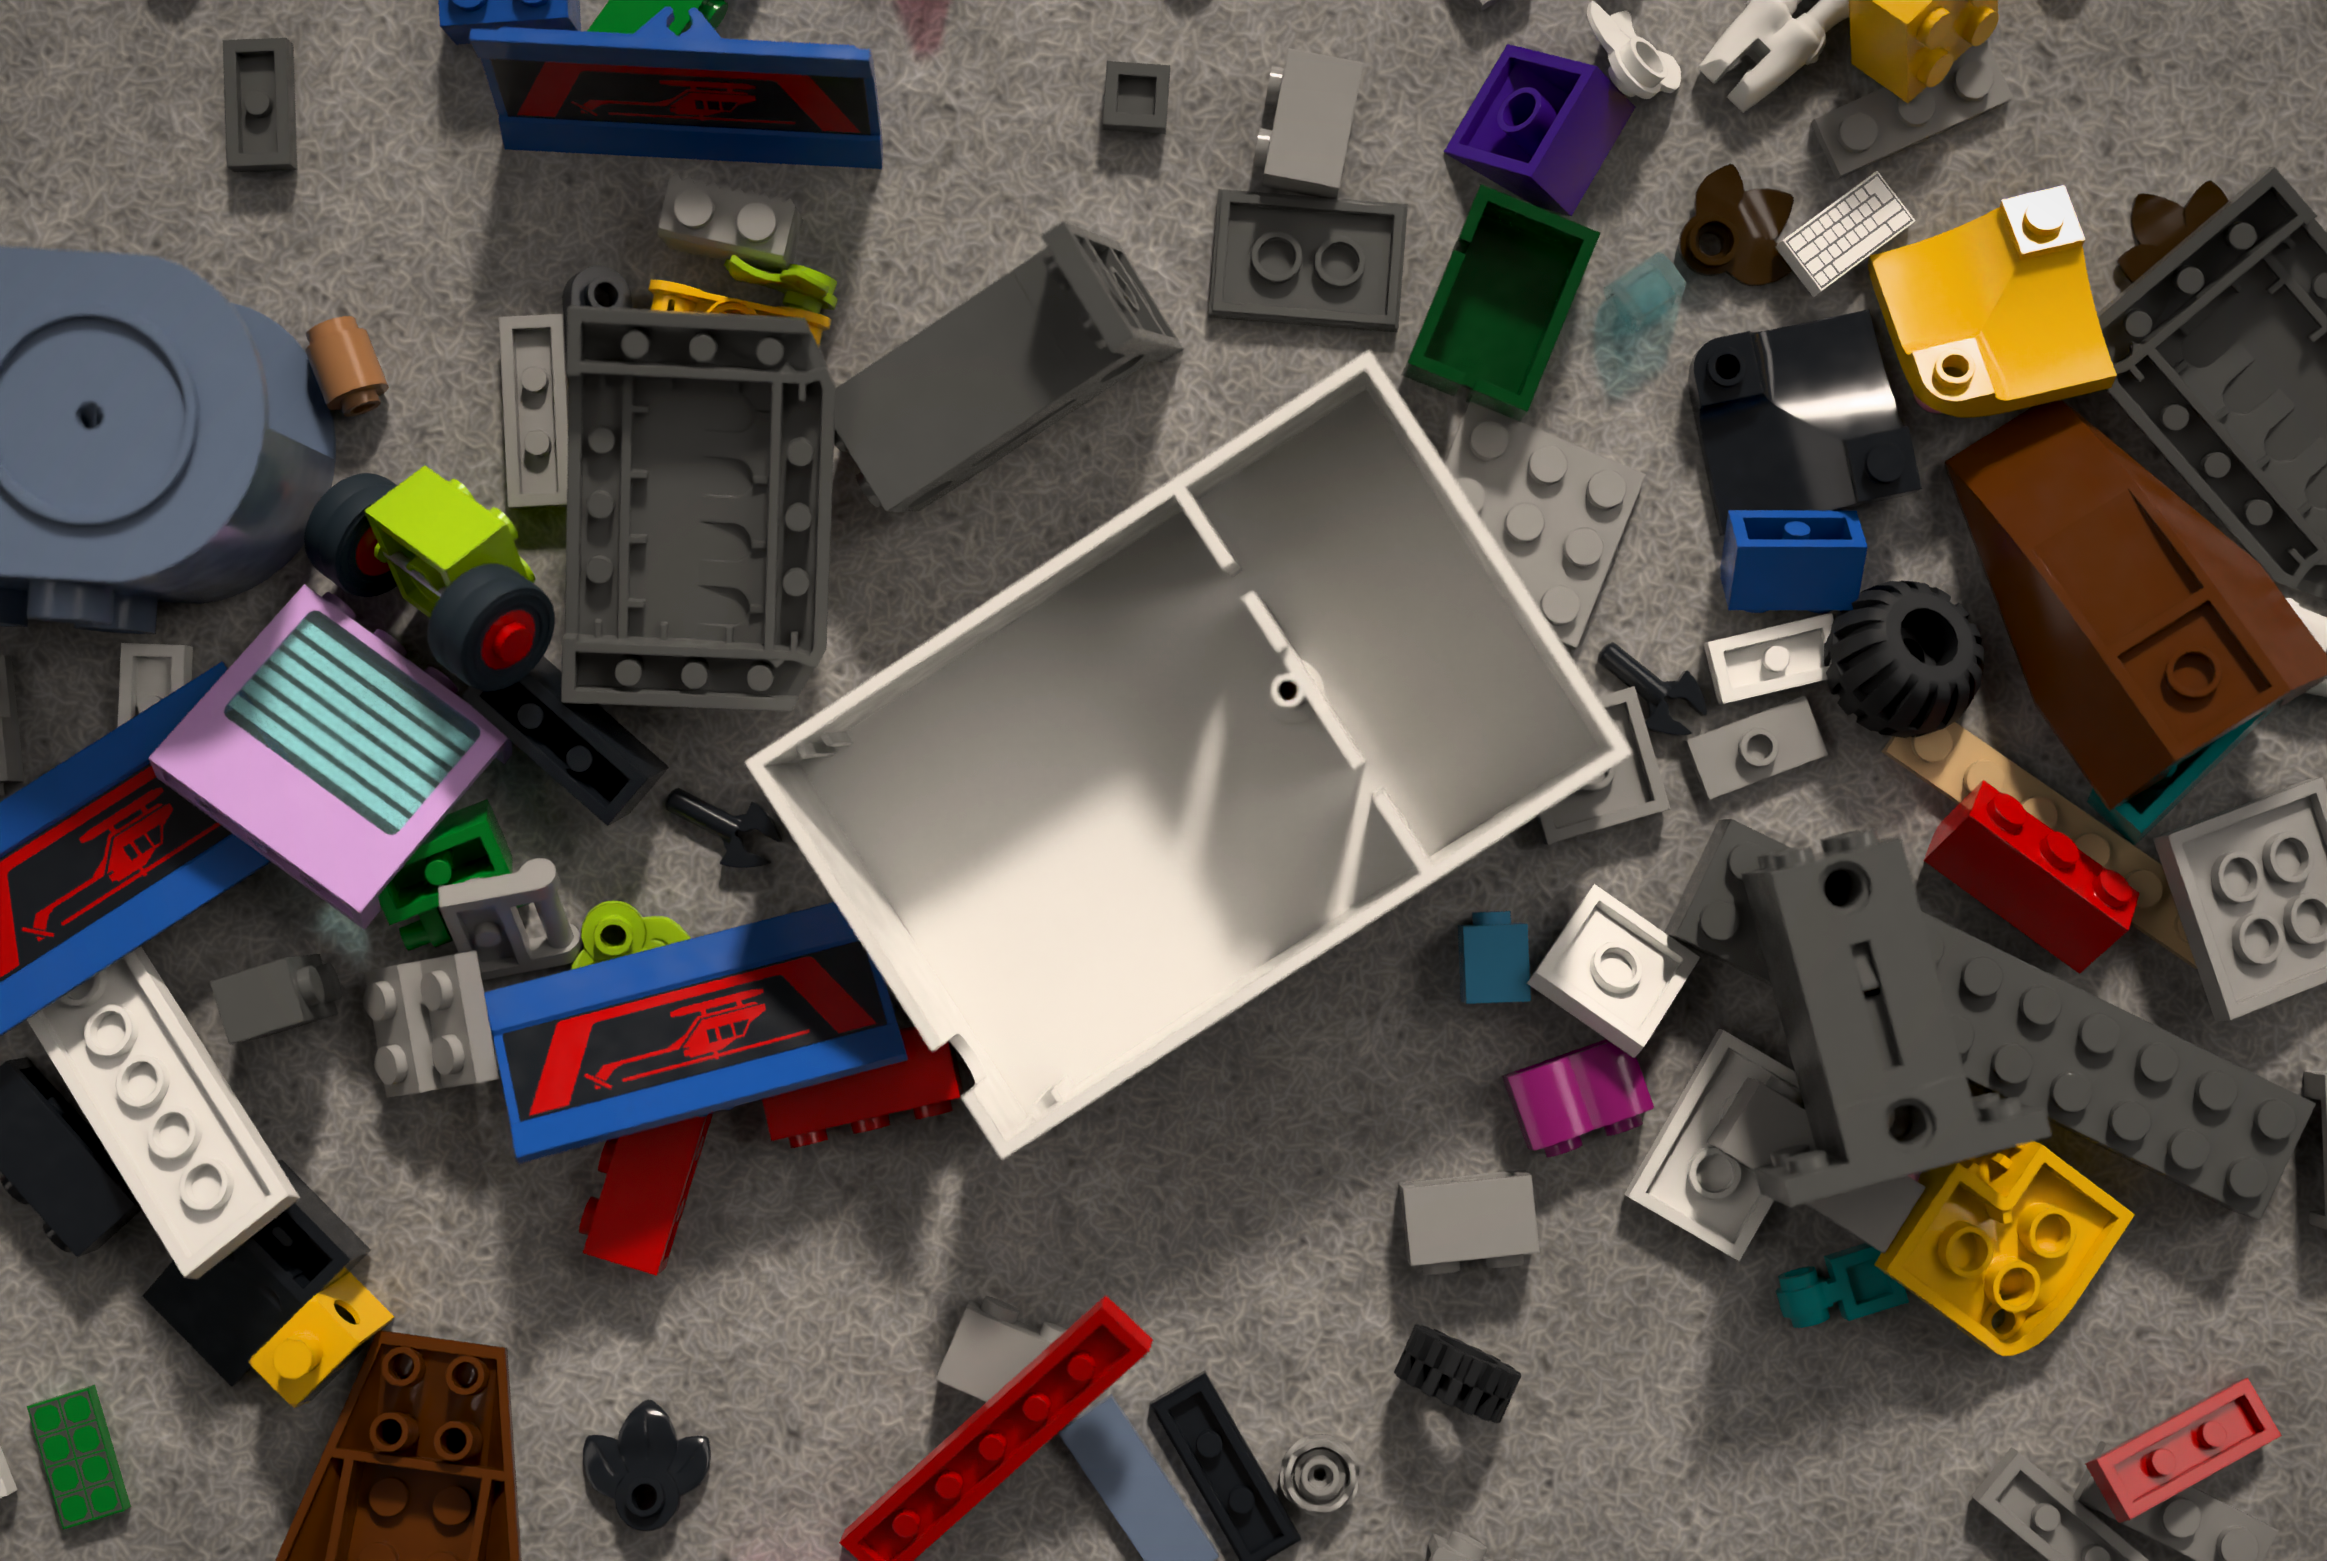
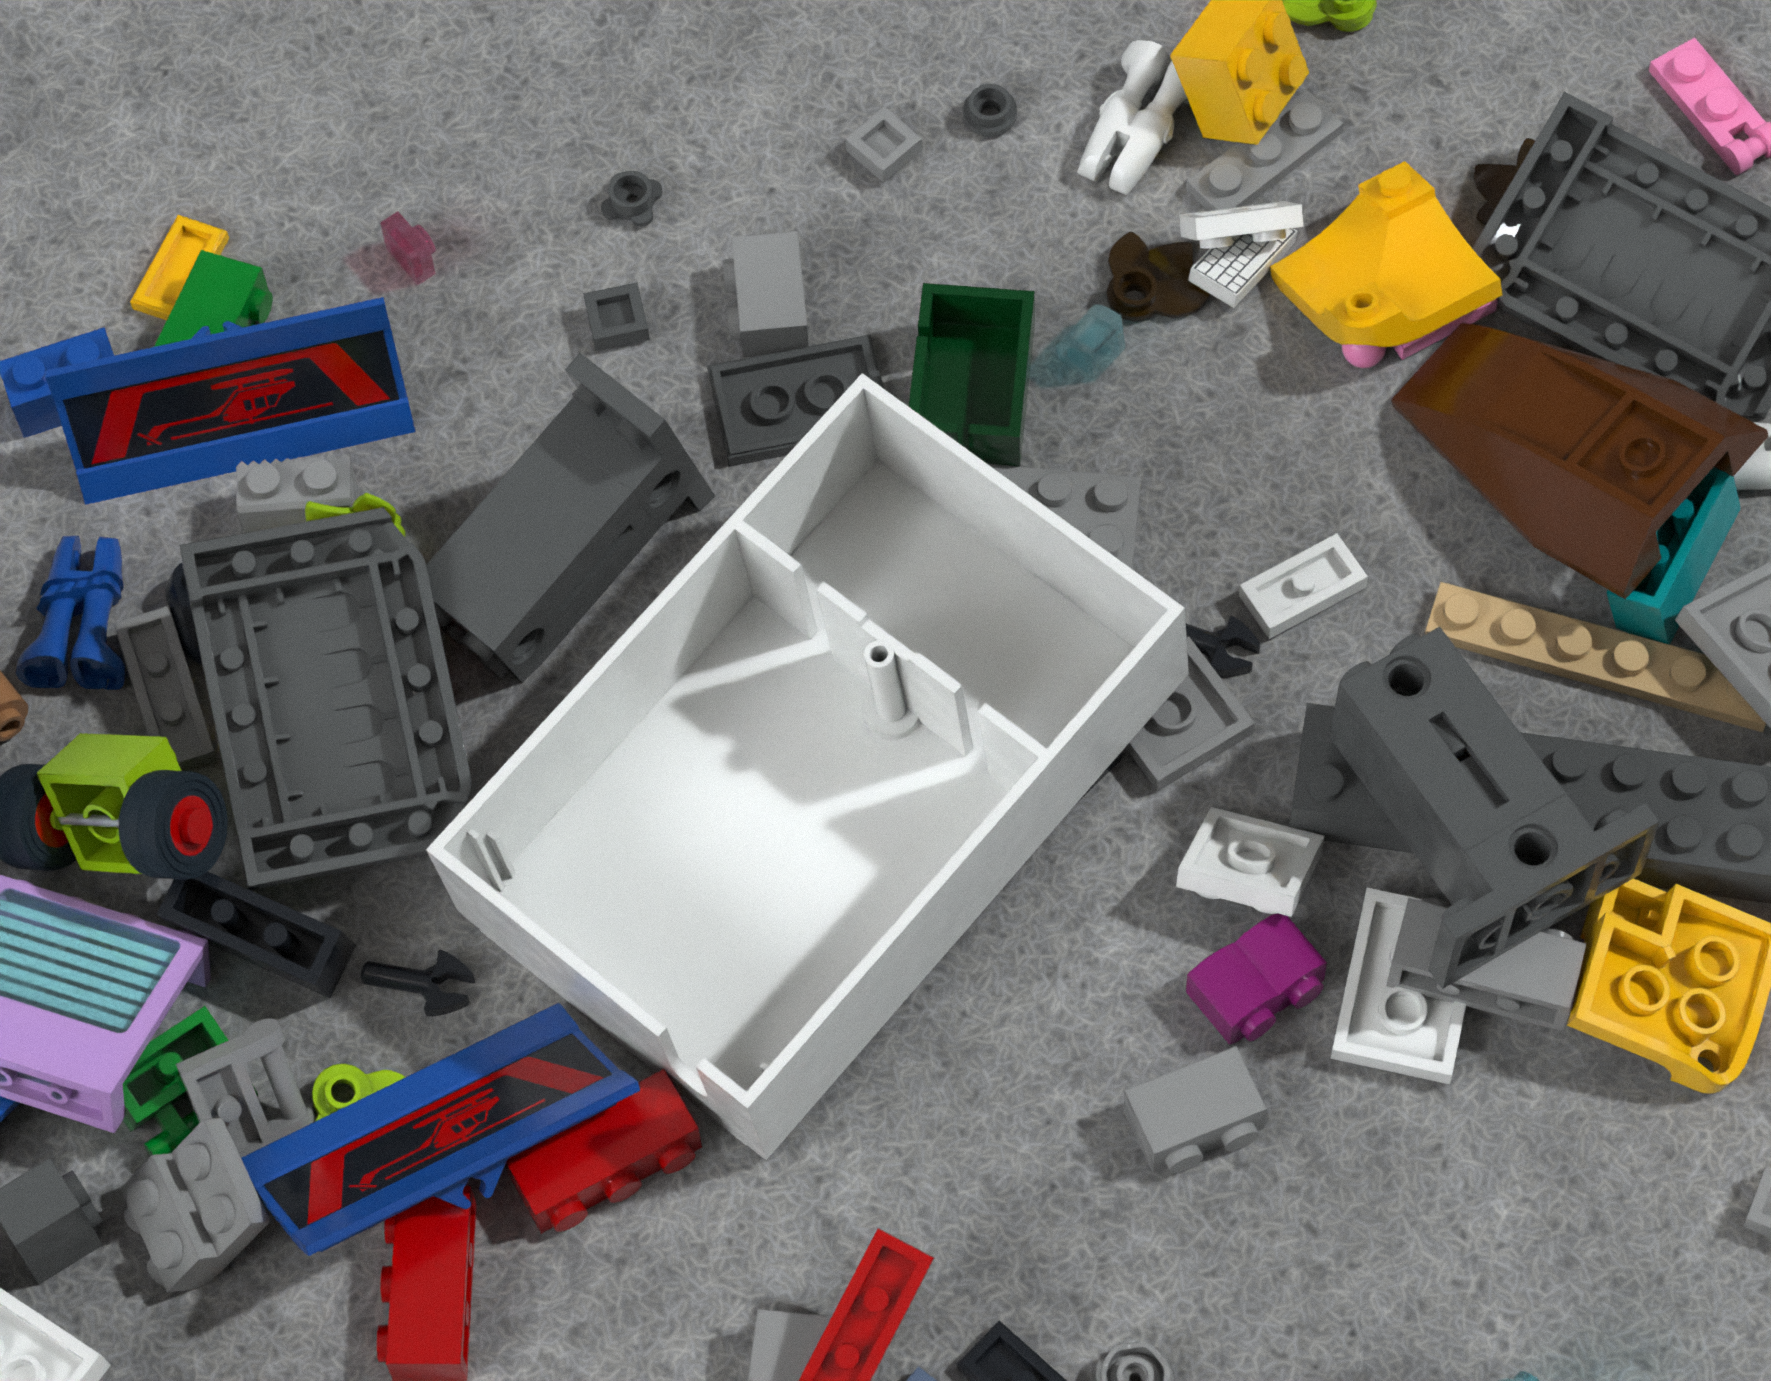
camera: 10 degrees left, 25 degrees down
(458, 263) = (69, 594): none -> blue piece
(1457, 1373) = (1229, 1237): black tyre -> none
(1493, 959) = (1143, 889): dark azure brick -> none
(1541, 127) = (963, 238): dark purple slope -> none
(1634, 62) = (1020, 170): white plate -> none
(1755, 747) = (1312, 662): light grey plate -> none
(1792, 560) = (1288, 501): blue brick -> none
(1800, 420) = (1256, 405): black slope -> none
(1852, 1283) = (1566, 1063): teal plate -> none
(1857, 203) = (1219, 226): none -> white plate
(1904, 659) = (1411, 550): black wheel -> none
(2032, 877) = (1586, 683): red brick -> none

